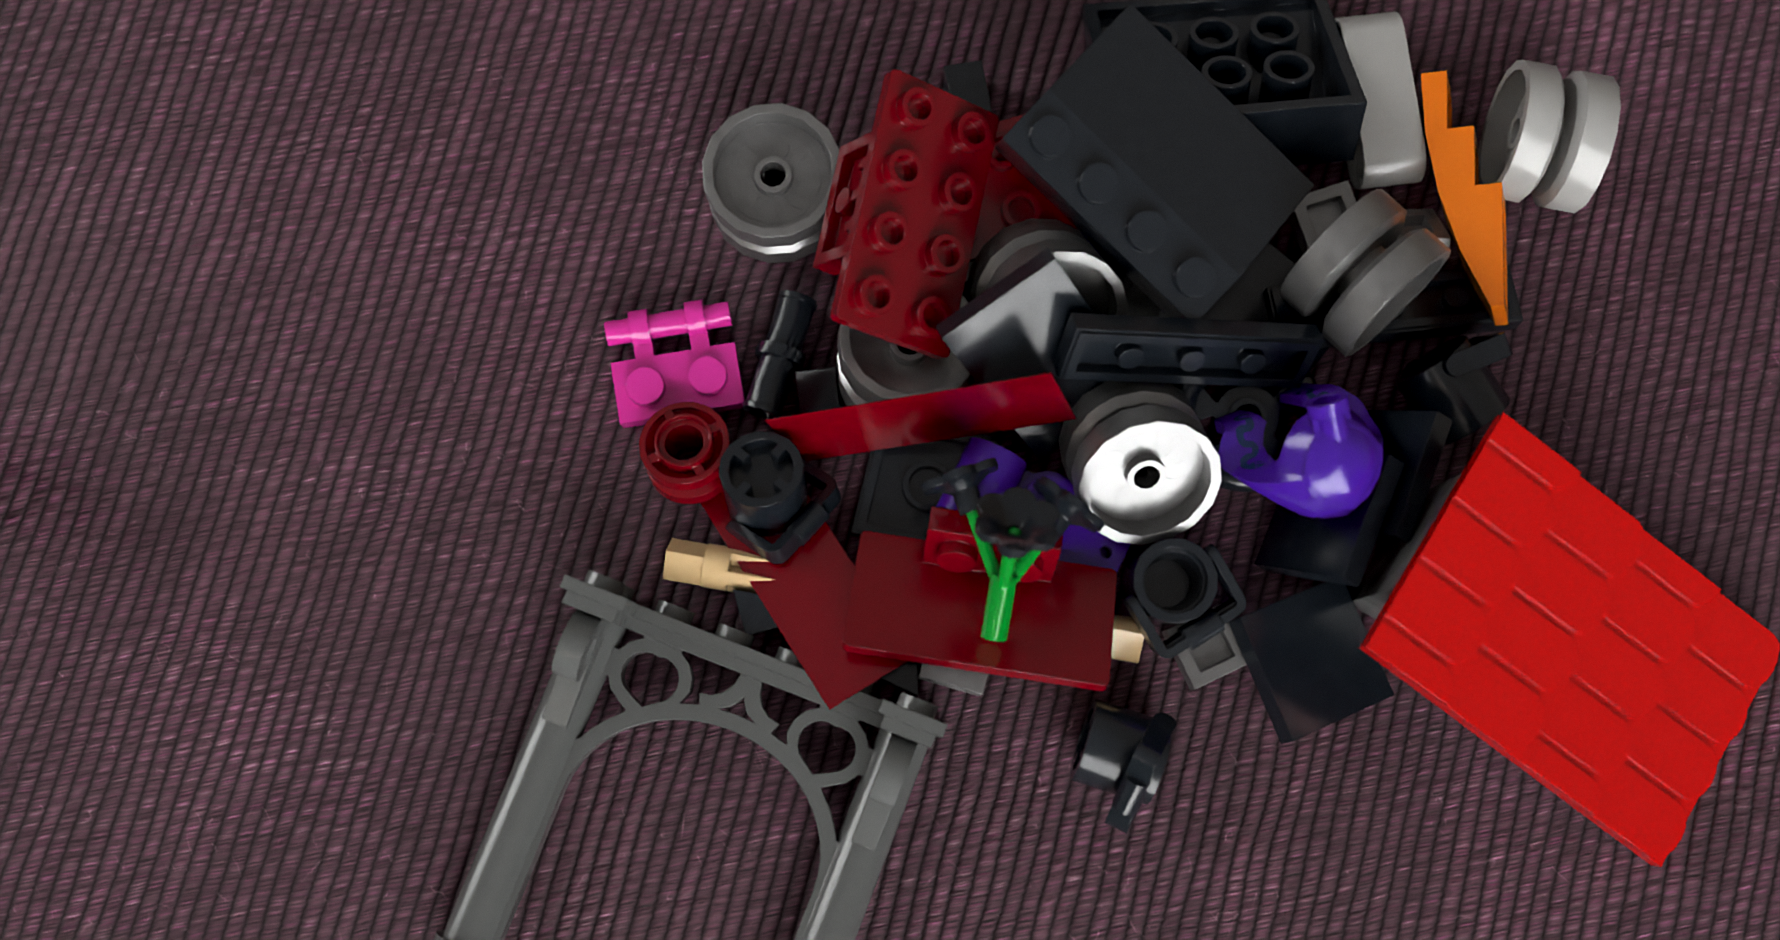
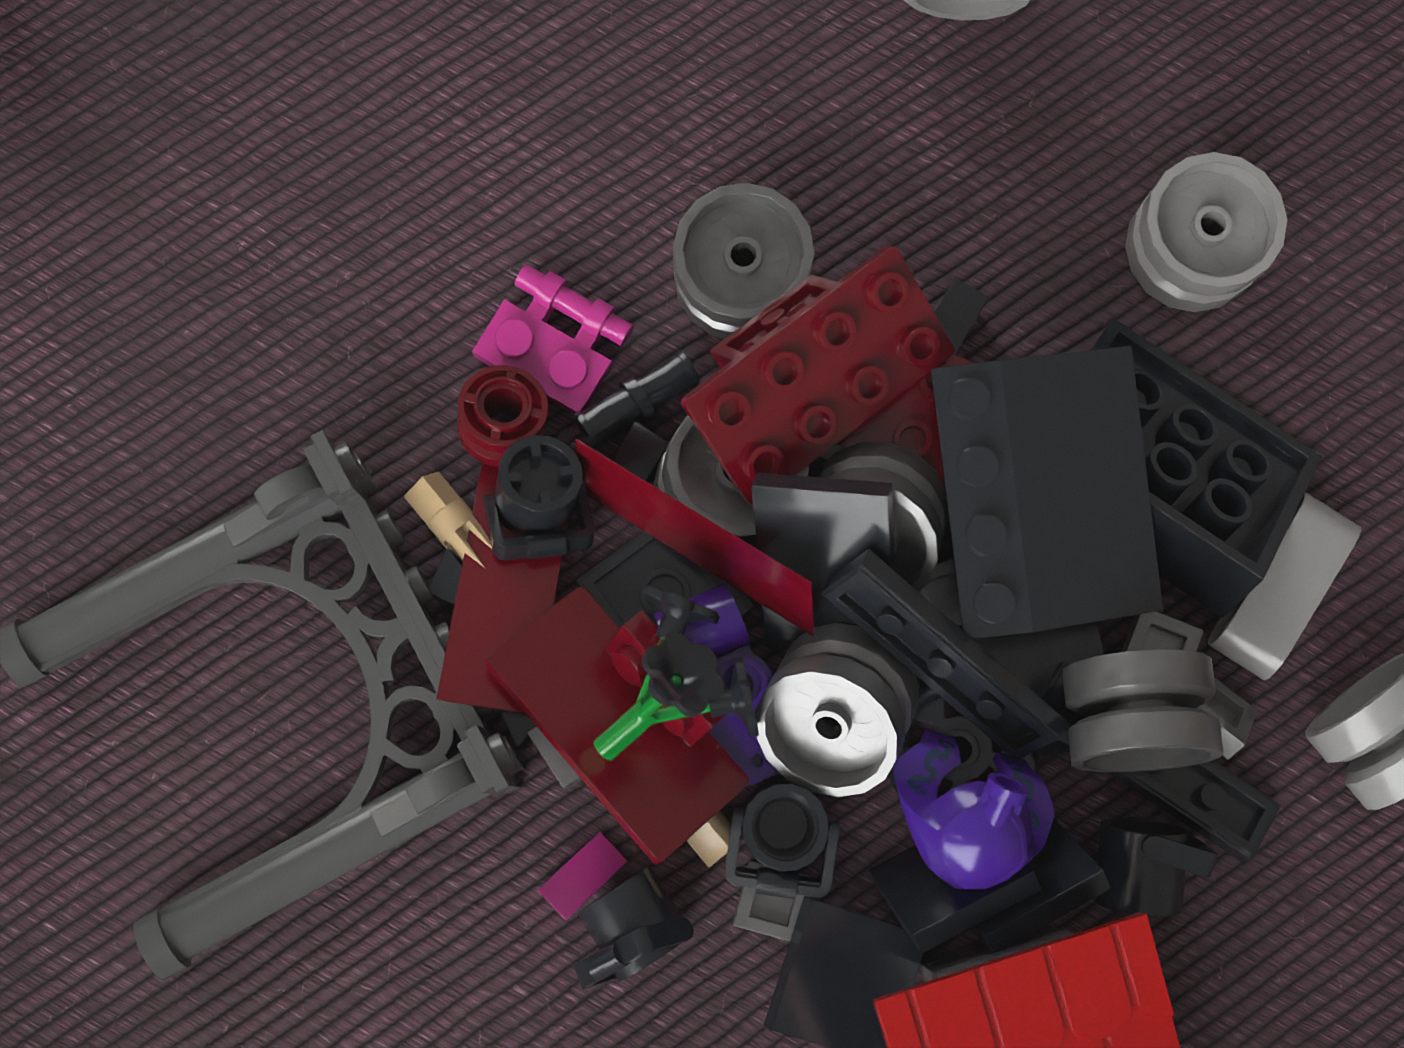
camera: 40 degrees right, 0 degrees up
(1048, 751) = (582, 876): none -> dark pink piece
(1471, 209) = (1281, 737): orange slope -> none

